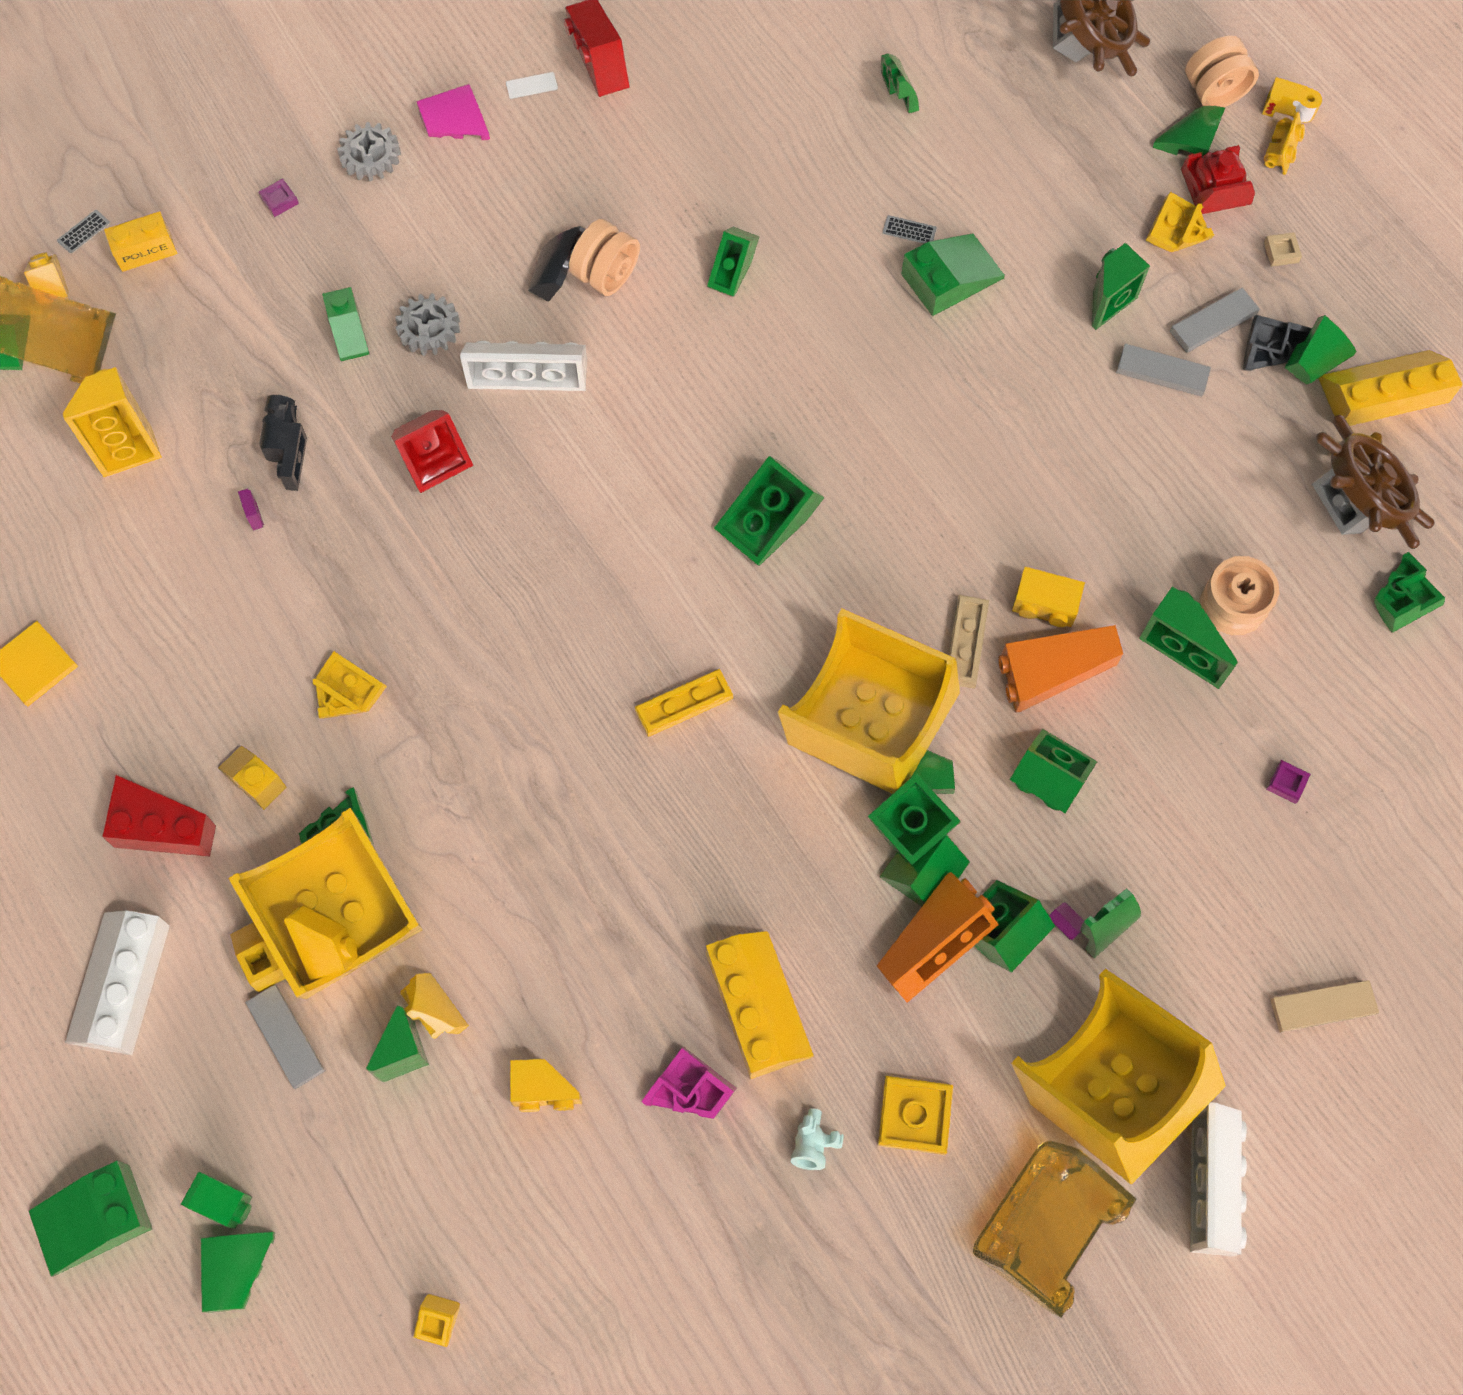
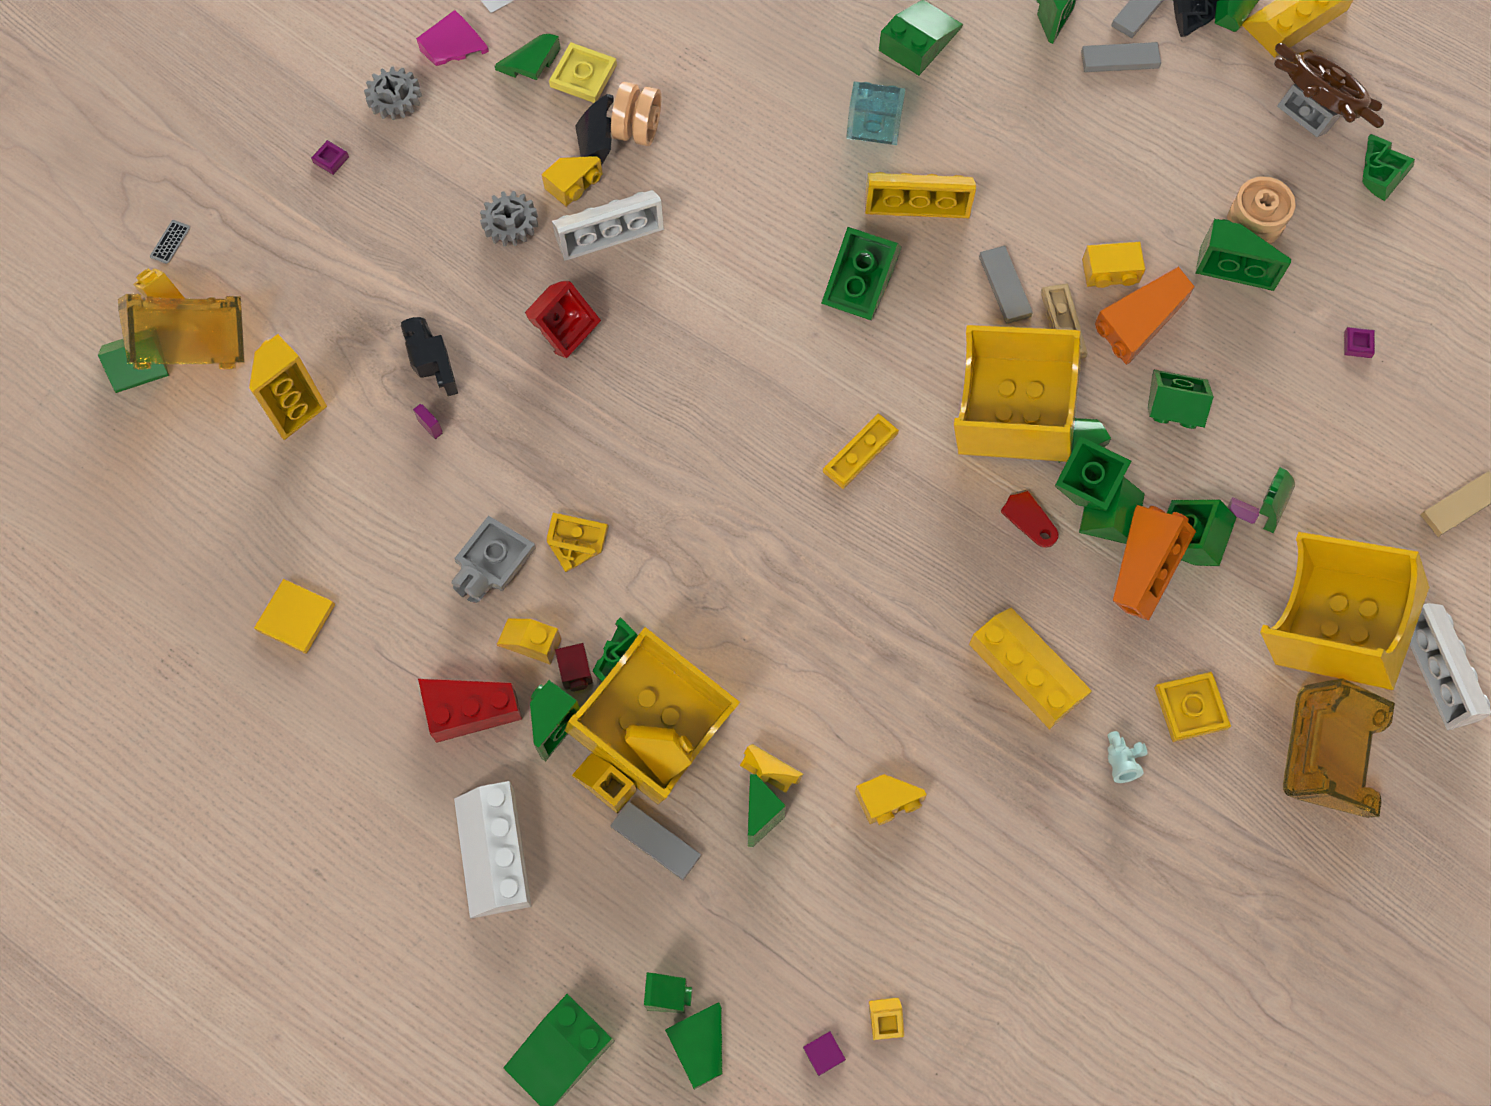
camera: 20 degrees left, 0 degrees up
(140, 241) = (228, 231): yellow brick -> none
(225, 856) = (550, 713): none -> green slope
(248, 677) = (490, 559): none -> light grey plate
(282, 822) = (574, 667): none -> dark red brick
(345, 324) = (439, 241): slope -> none
(355, 1330) = (824, 1053): none -> magenta tile
(511, 302) = (571, 177): none -> yellow slope
(528, 160) = (531, 57): none -> green slope
(574, 194) = (583, 72): none -> light yellow plate
(690, 1087) = (1006, 753): dark pink slope -> none
(732, 260) = (740, 83): green slope -> none
(831, 842) = (1030, 518): none -> red piece
(859, 341) = (875, 113): none -> clear light blue brick
(868, 446) = (919, 195): none -> yellow slope
(909, 229) = (869, 13): sticker -> none
(921, 577) = (1005, 284): none -> light grey tile

